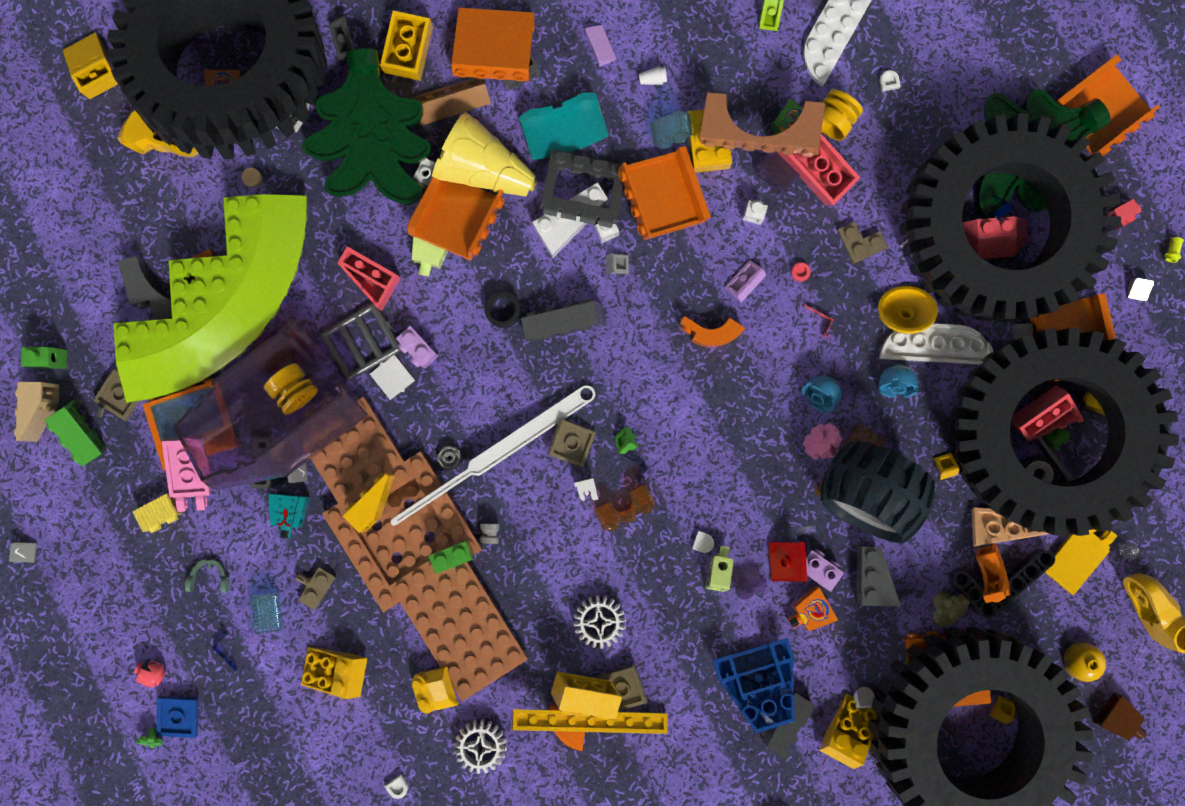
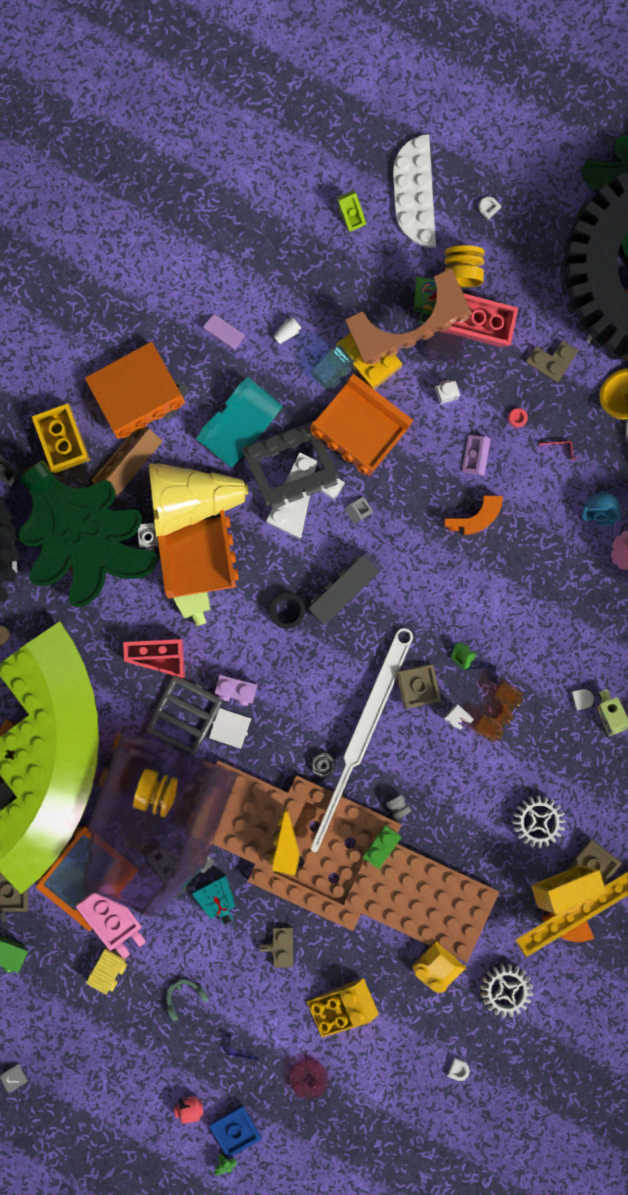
camera: 30 degrees left, 0 degrees up
(266, 612) = (253, 995): clear light blue brick -> none
(278, 711) = (301, 1087): none -> clear pink plate

